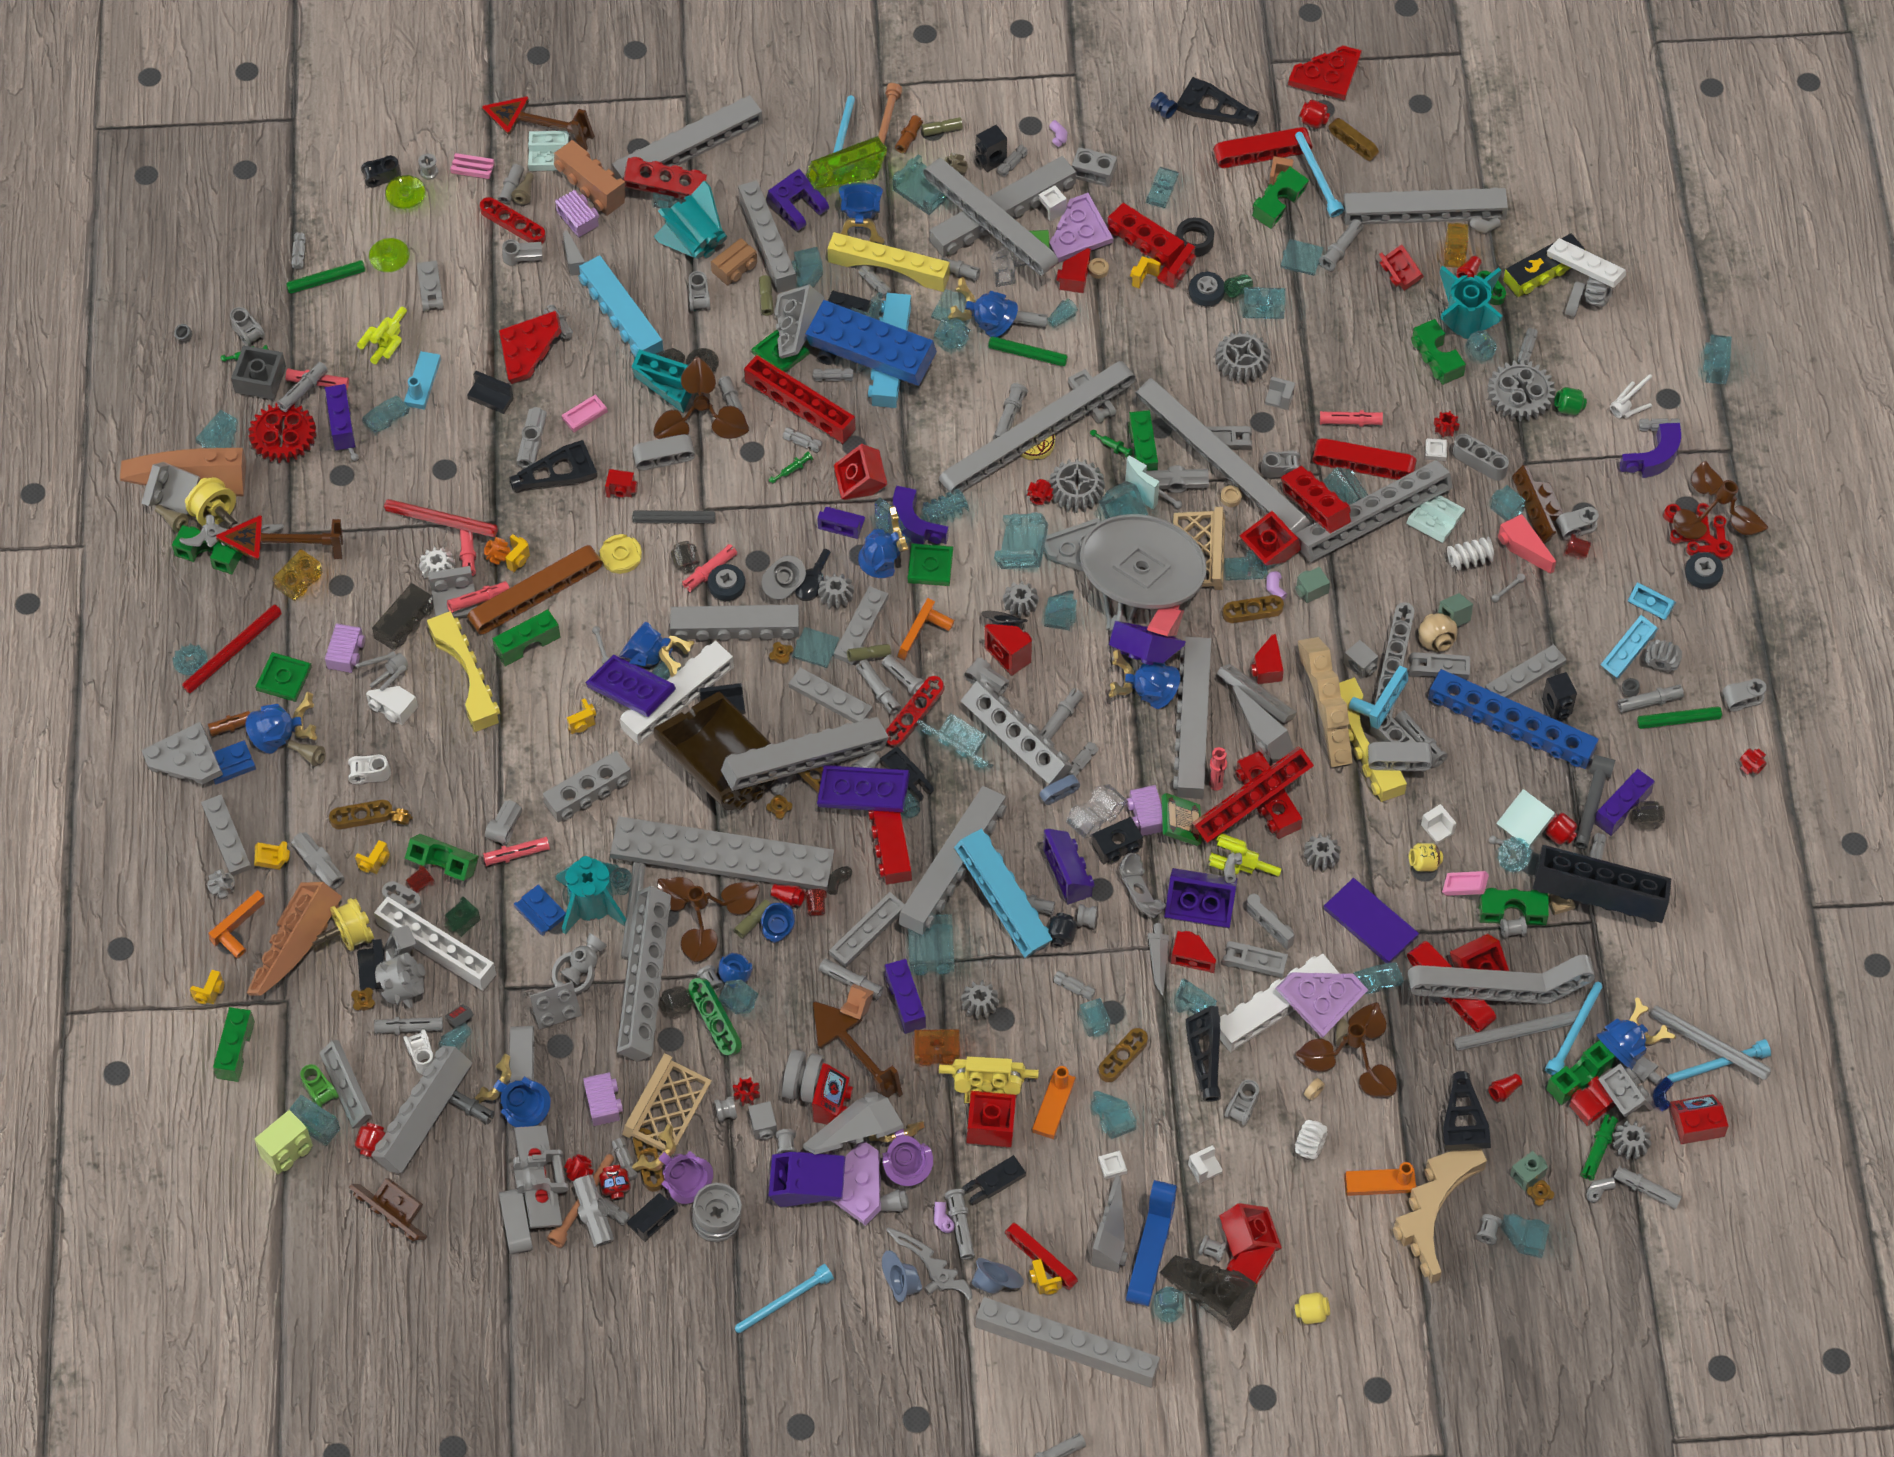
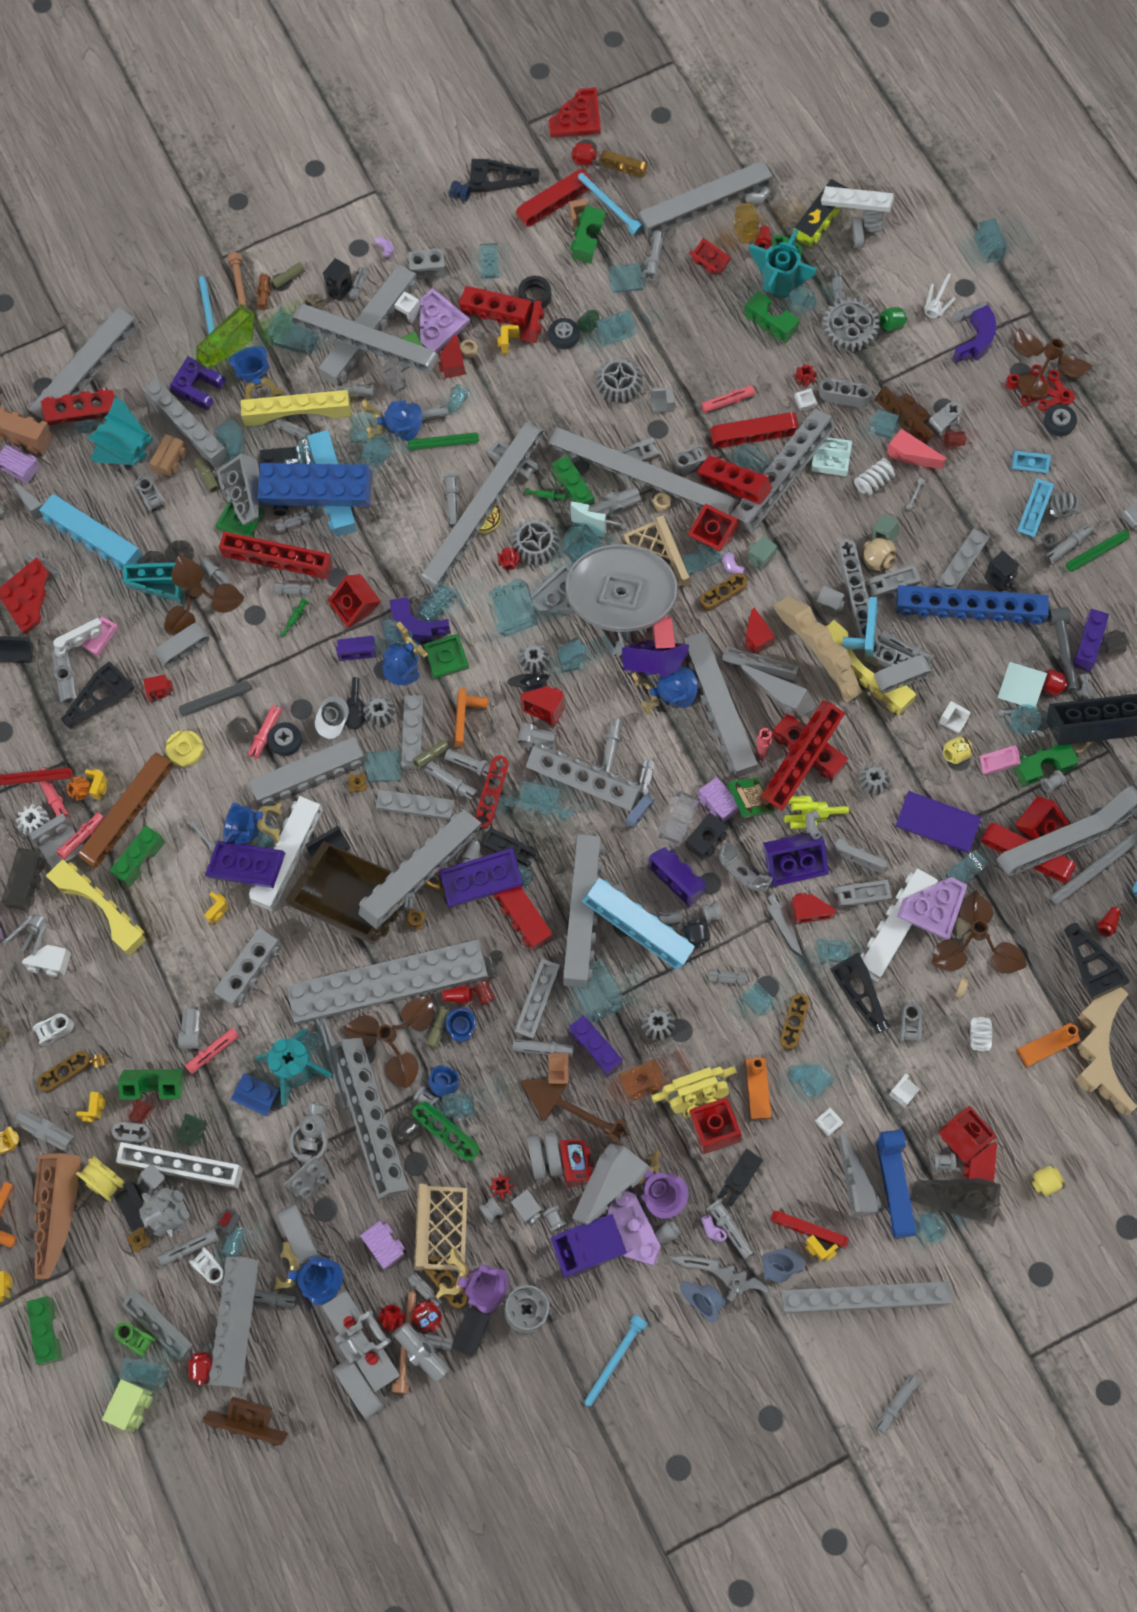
camera: 20 degrees left, 10 degrees up
(561, 403) = (77, 637): none -> white plate

